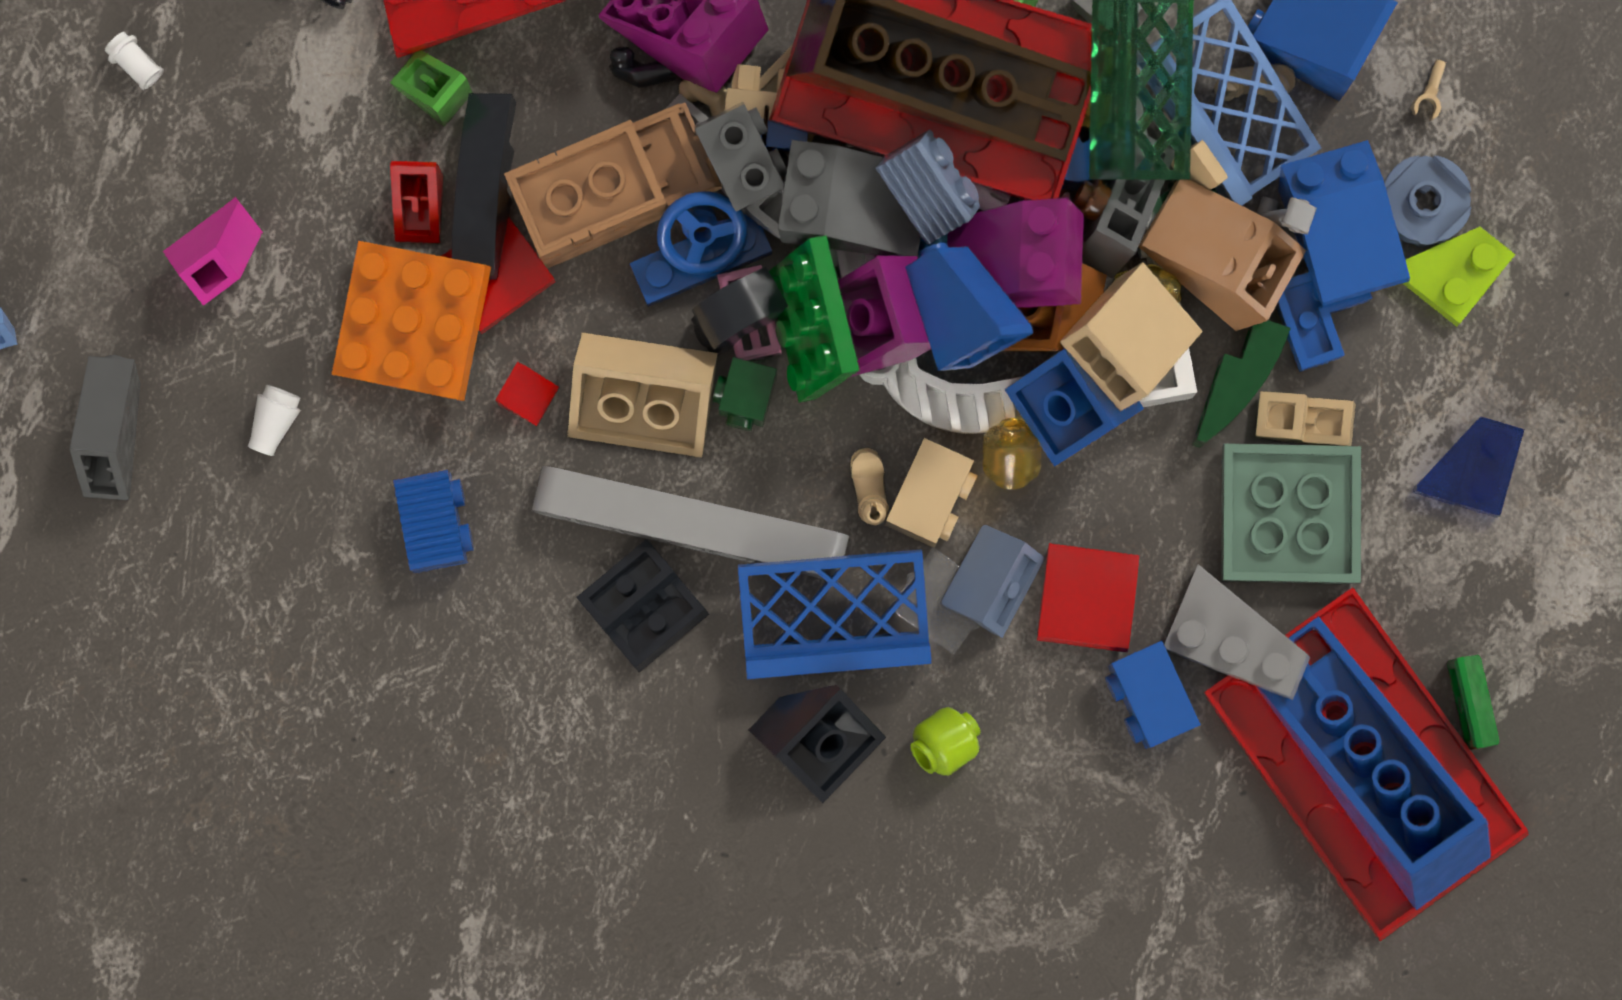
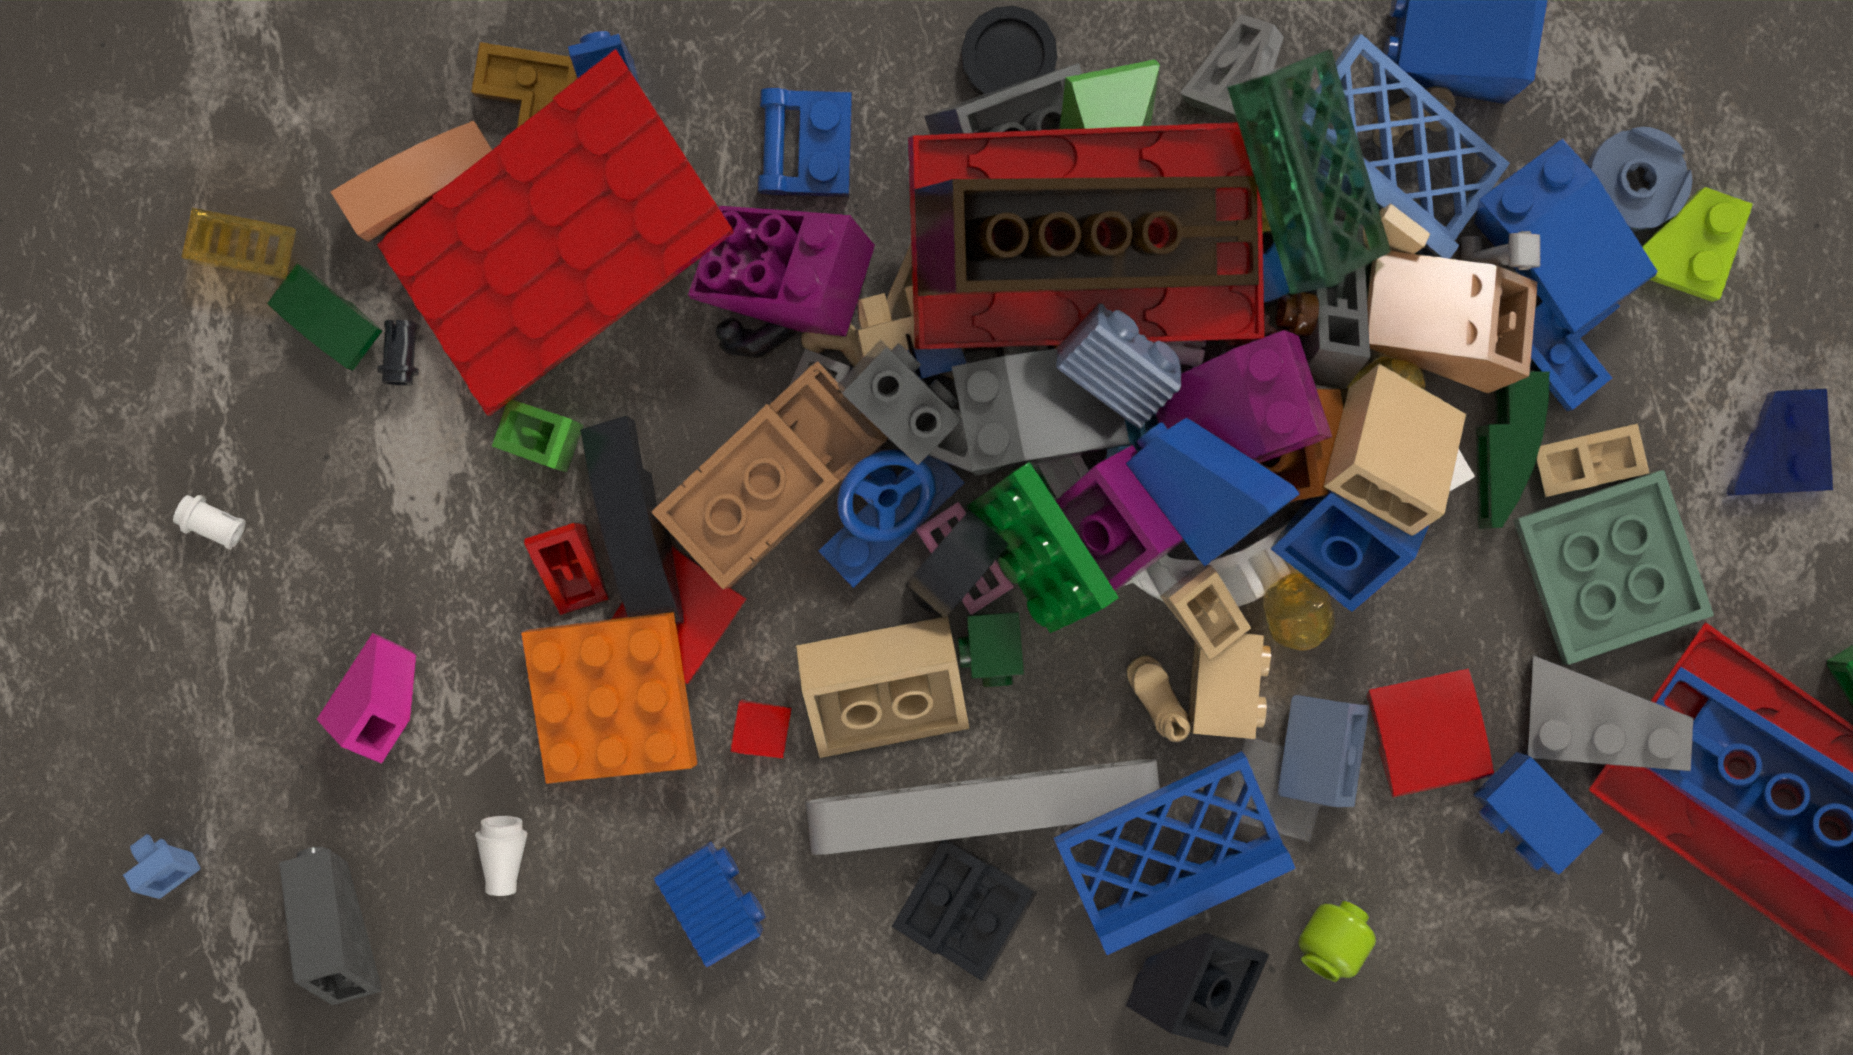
camera: 20 degrees left, 5 degrees up
(932, 418) = (1206, 610): none -> tan slope
(1431, 90) = (1601, 61): tan hand -> none

